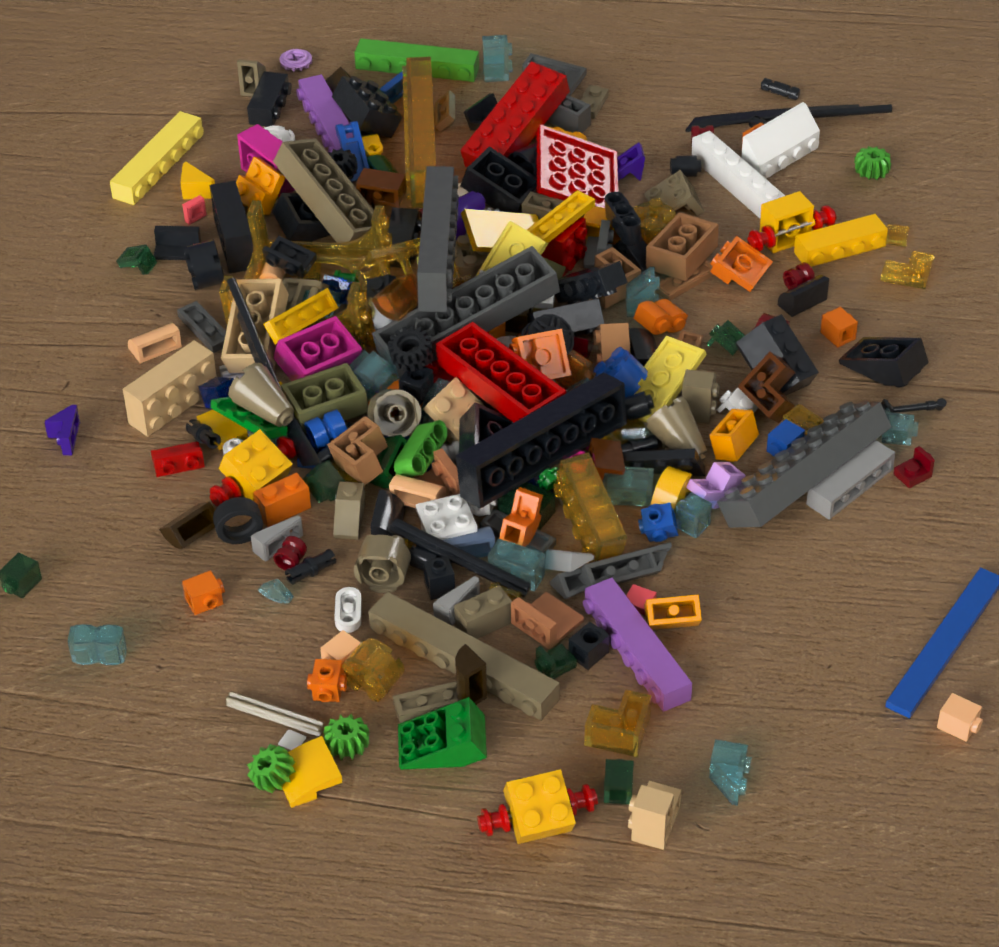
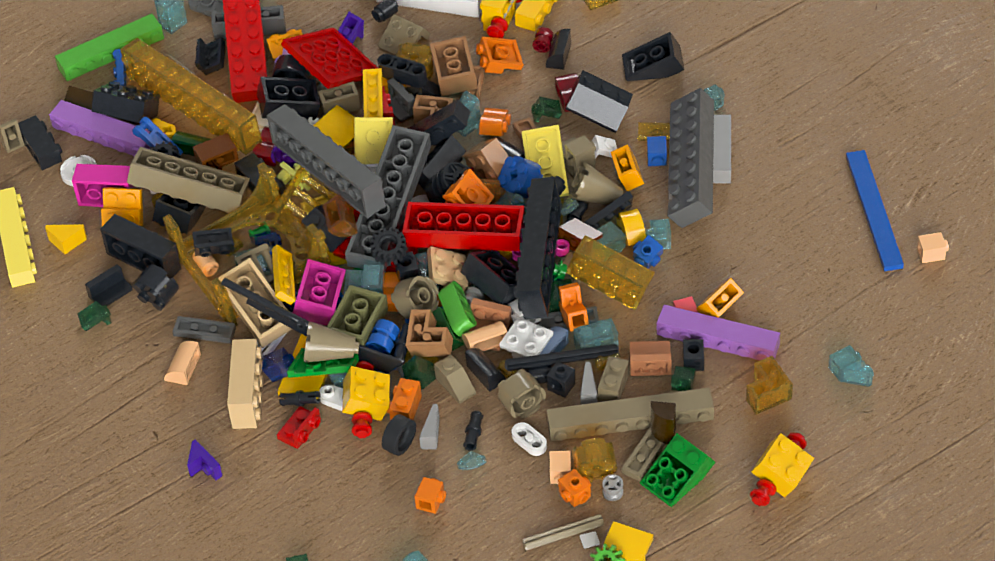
camera: 40 degrees left, 5 degrees up
(189, 525) = (365, 460): dark brown brick -> none
(194, 209) = (91, 255): coral tile -> none
(290, 553) = (451, 430): dark red wheel -> none
(301, 60) = (17, 96): lavender gear -> none
(346, 736) = (624, 511): bright green gear -> none
(362, 702) = (614, 482): none -> light grey wheel
(566, 560) = (624, 313): light grey slope -> none
(618, 781) = (801, 418): clear green brick -> none
(620, 568) = (651, 304): dark grey wedge -> none
(653, 814) = (844, 421): tan brick -> none
(719, 480) = (653, 204): lavender brick -> none
(764, 386) = (613, 127): reddish brown brick -> none
(838, 327) = (603, 57): orange brick -> none
(915, 469) = (745, 117): dark red bracket -> none
(928, 405) = (709, 72): black piece -> none

